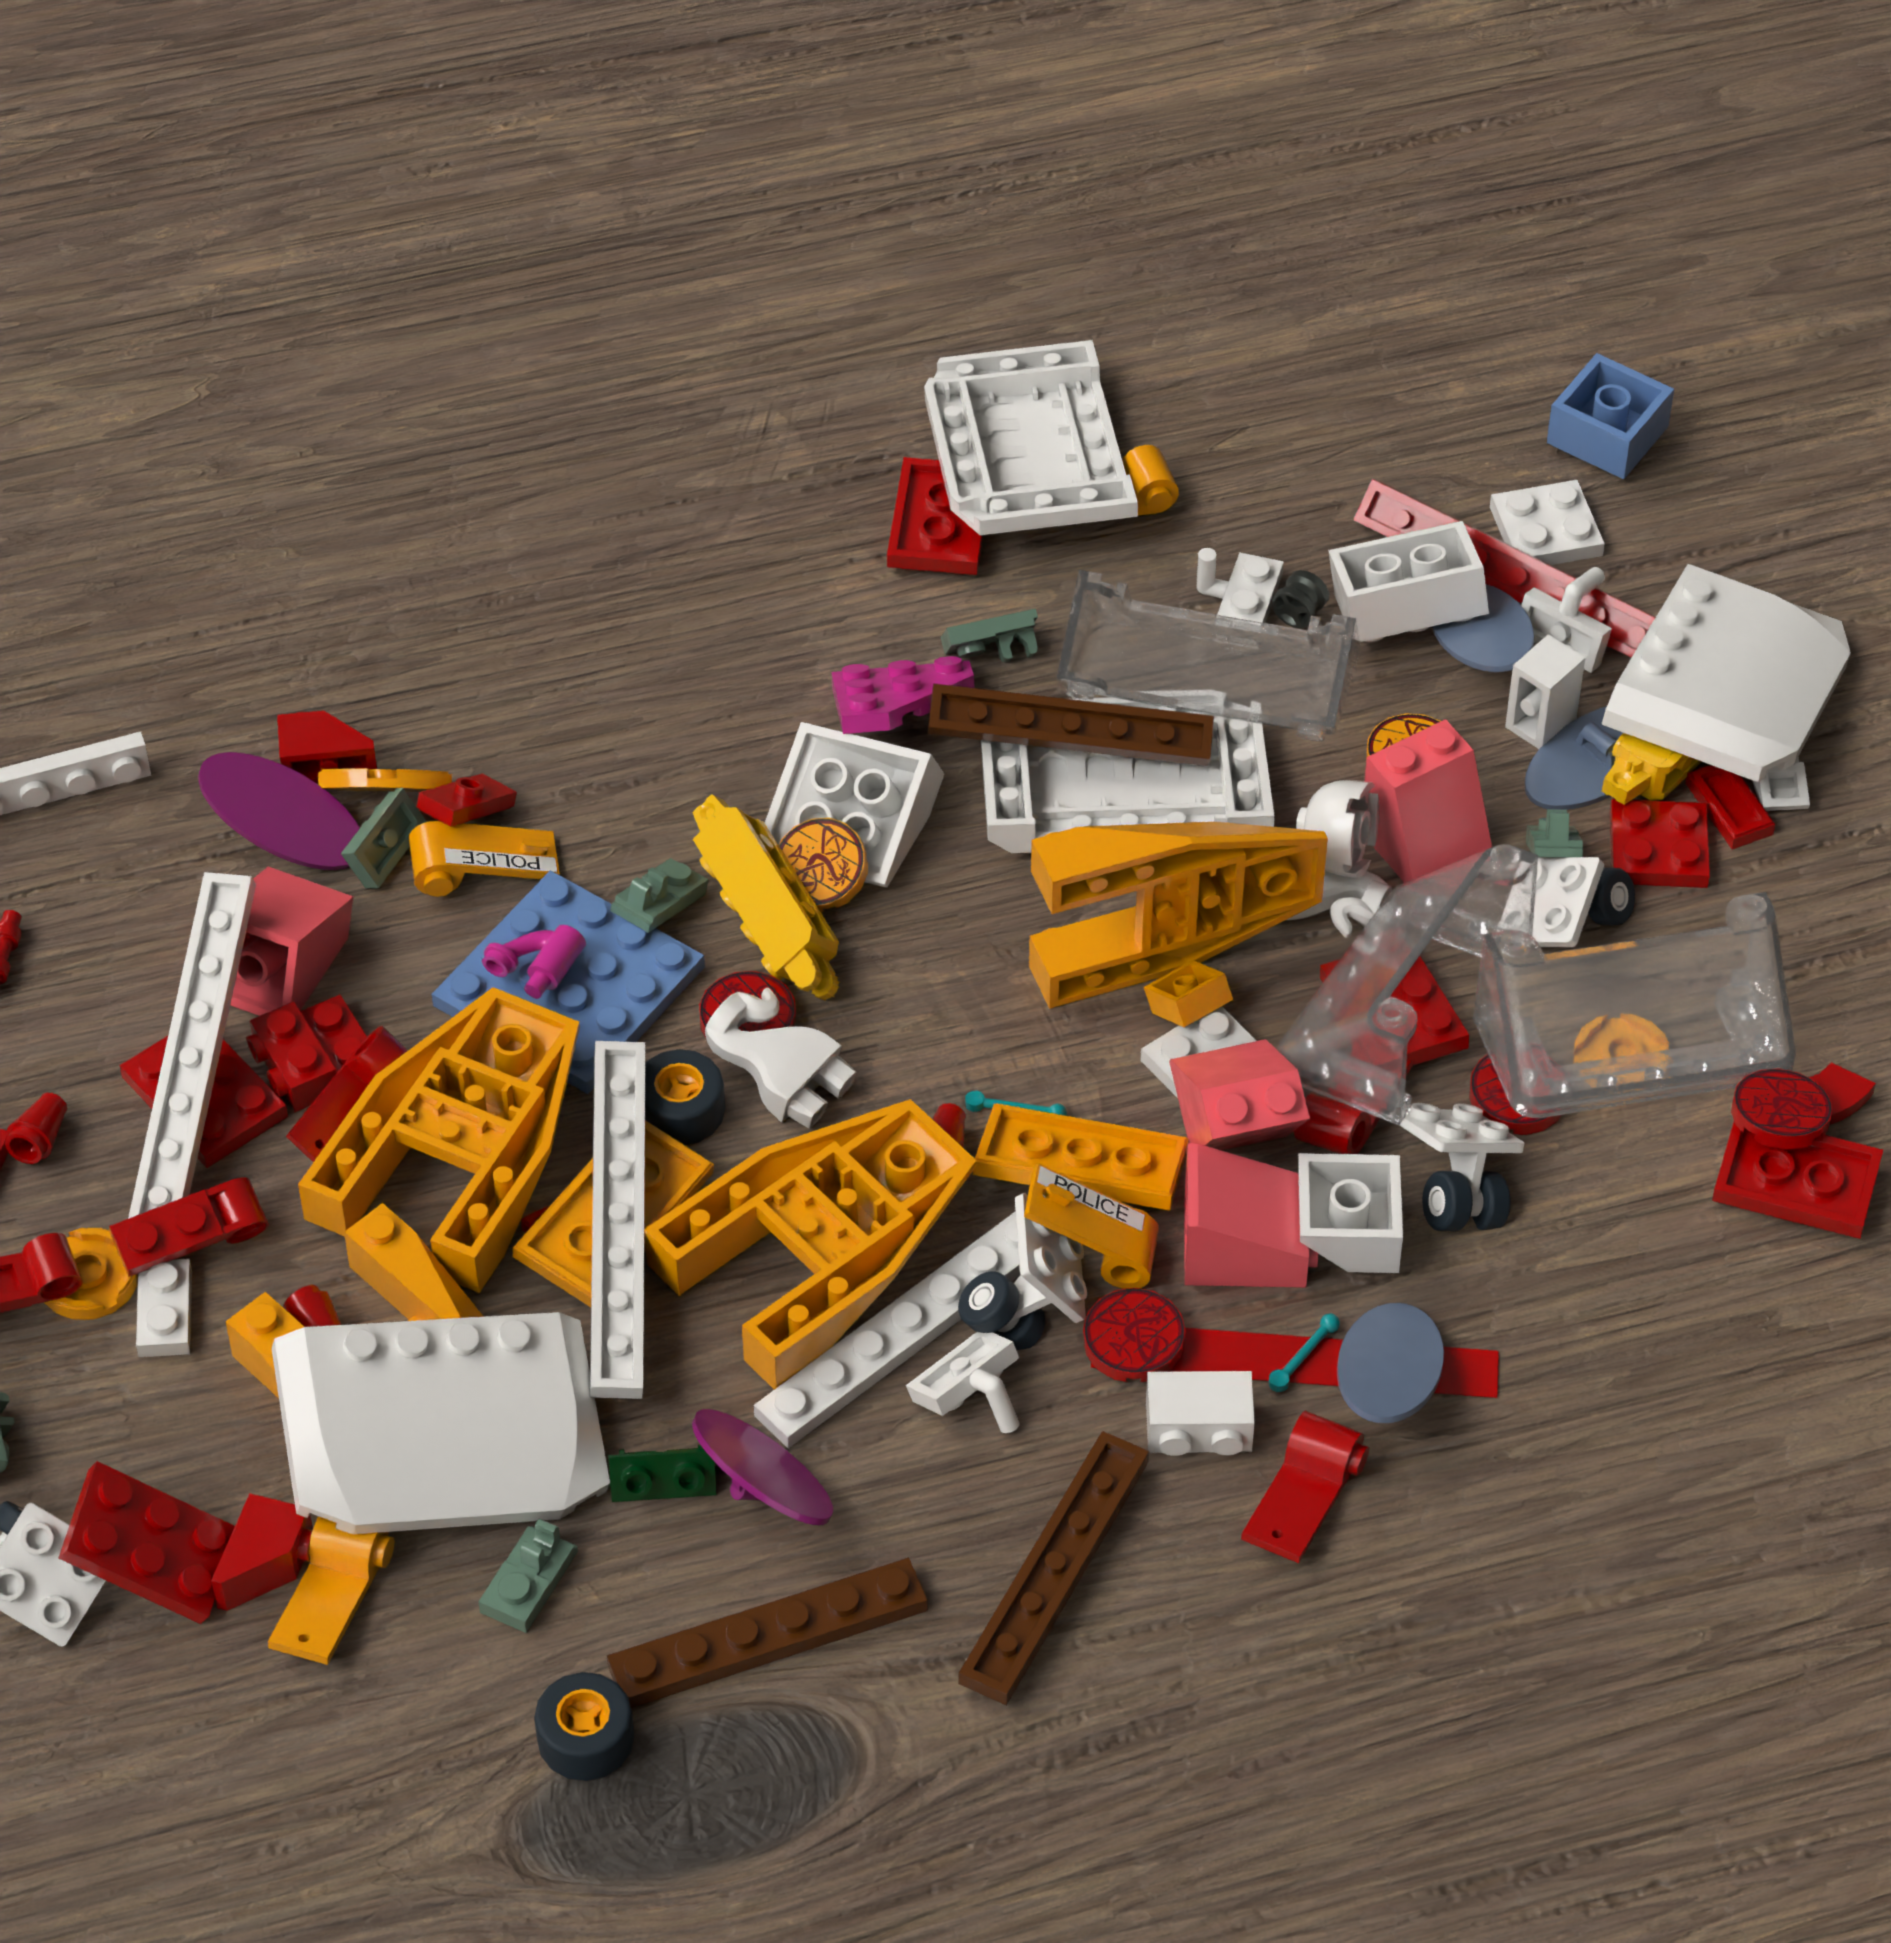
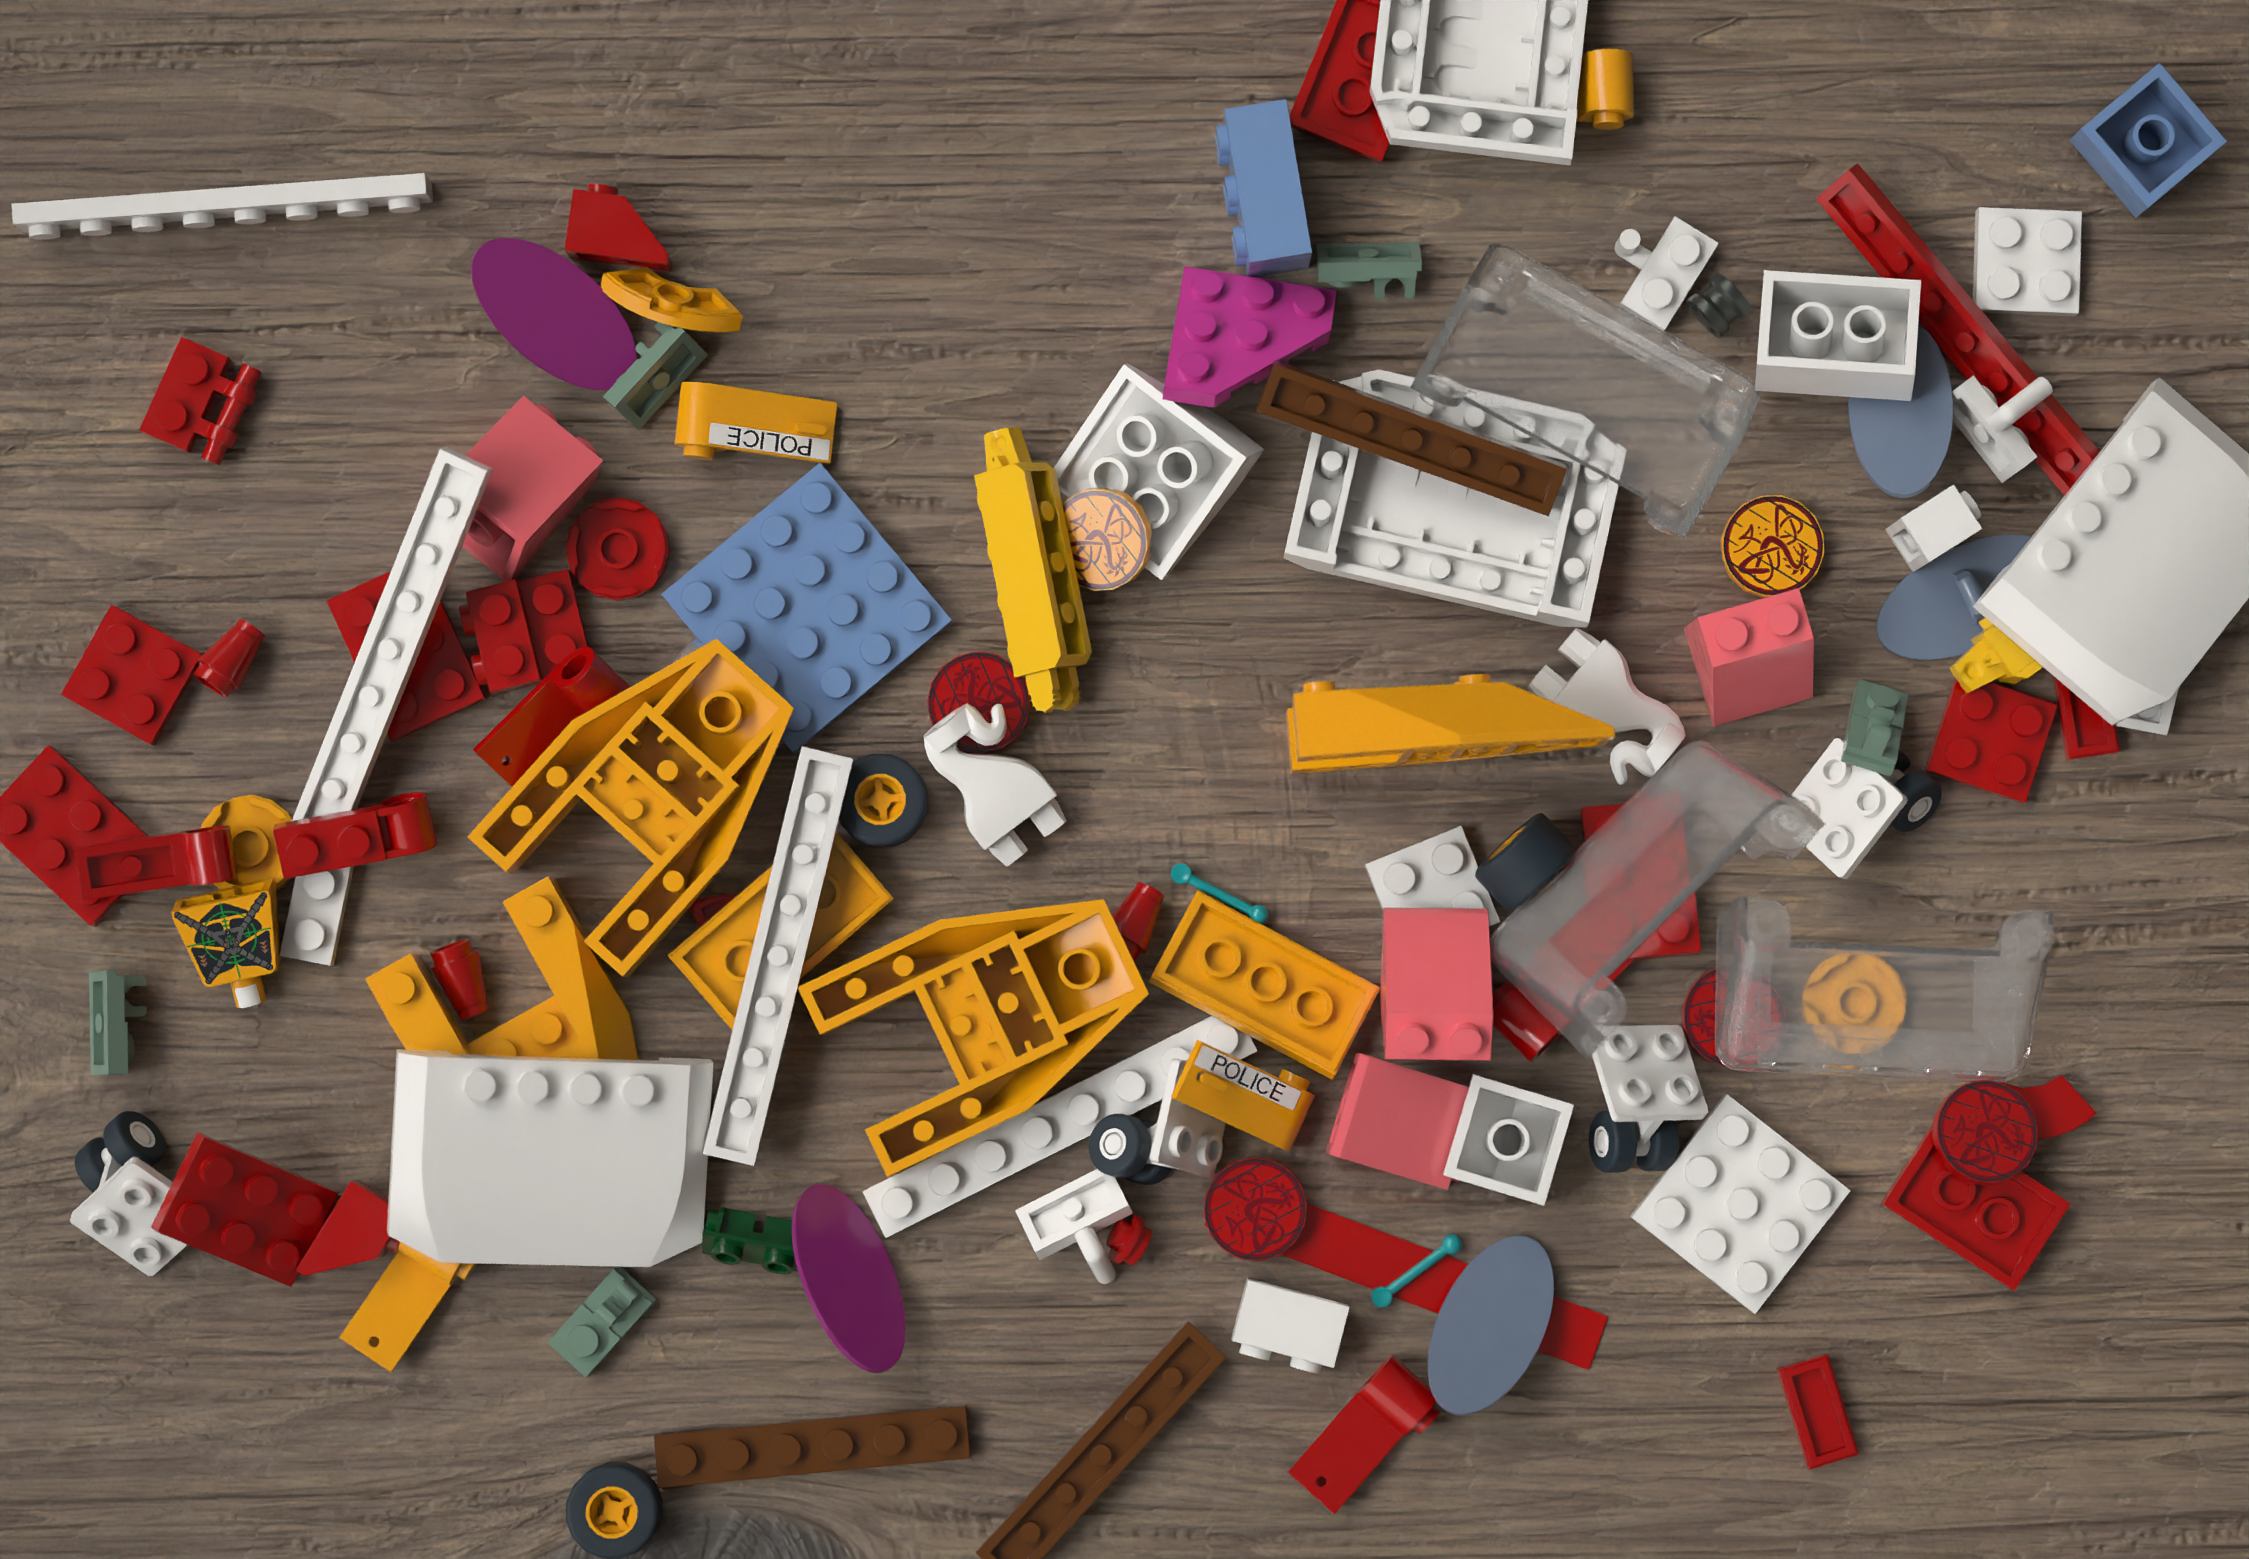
camera: 15 degrees right, 35 degrees up
(87, 1332) = (232, 937): none -> torso
(382, 976) = (617, 549): none -> red tile
(466, 799) = (751, 351): red plate -> none
(556, 956) = (787, 608): dark pink plant -> none
(659, 895) = (924, 531): sand green plate -> none
(883, 589) = (1263, 189): none -> medium blue brick
(1022, 1383) = (1128, 1240): none -> red plate
(1188, 993) = (1432, 813): light orange piece -> none
(1280, 997) = (1524, 861): none -> black wheel
(1349, 820) = (1646, 674): white cylinder -> none
(1584, 1230) = (1740, 1203): none -> white plate
(1725, 1376) = (1817, 1411): none -> red tile

